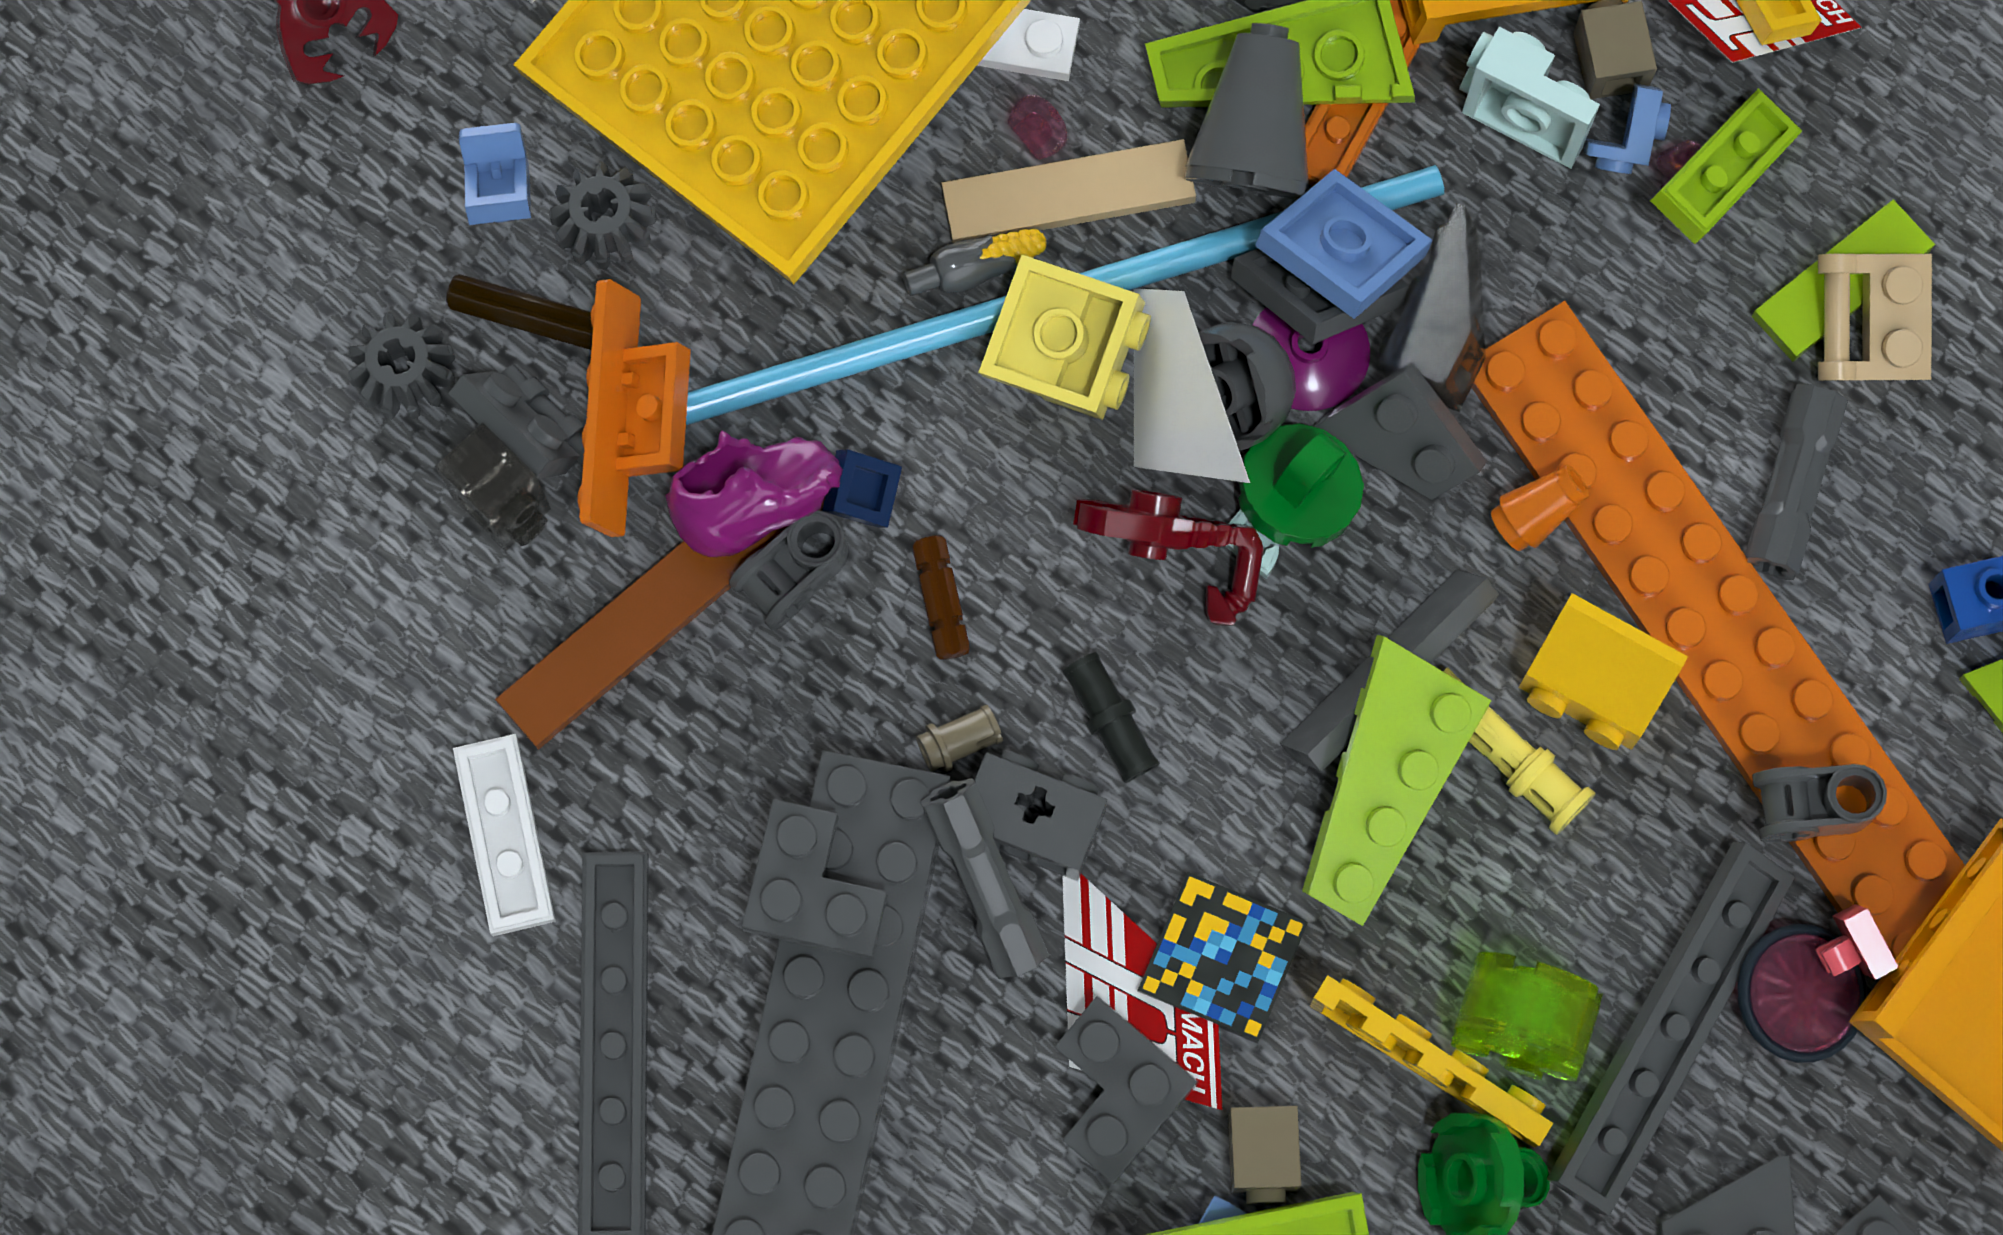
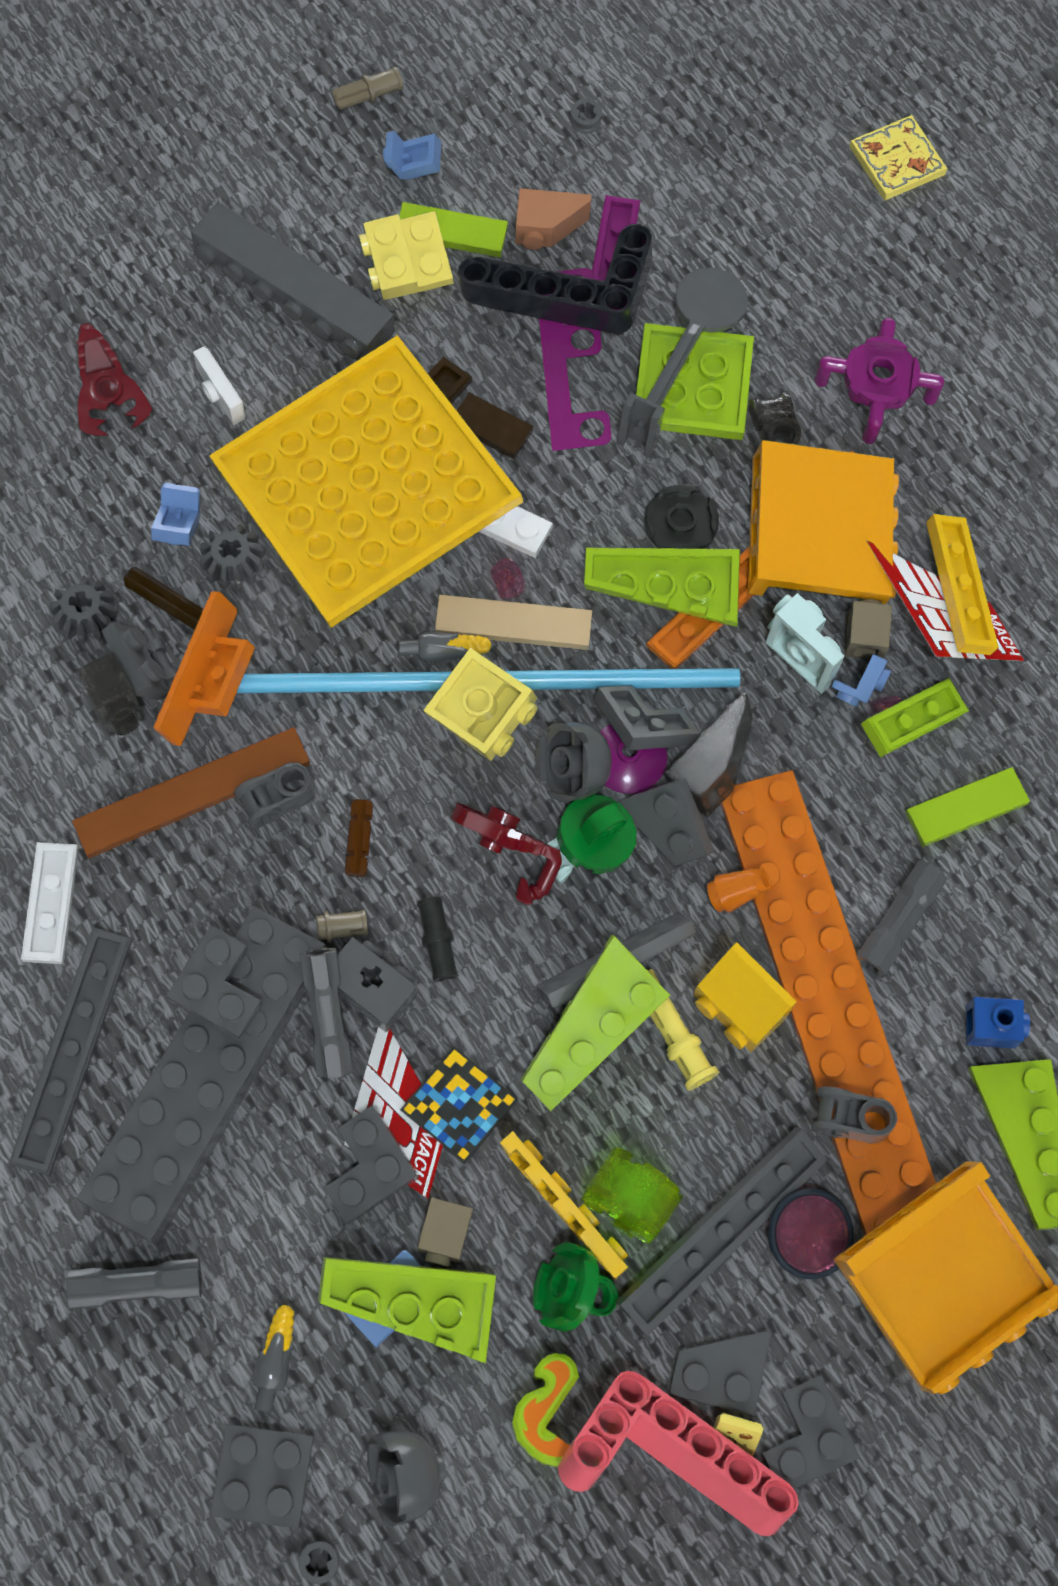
camera: 10 degrees right, 5 degrees down
(748, 491) = (260, 740): magenta piece -> none
(865, 489) = (332, 759): dark blue plate -> none
(1176, 398) = (535, 761): white sticker -> none
(1255, 119) = (635, 608): dark grey cone -> none
(1344, 243) = (666, 696): medium blue plate -> none
(1859, 945) = (853, 1213): tile -> none
(1894, 317) = (991, 836): tan plate -> none

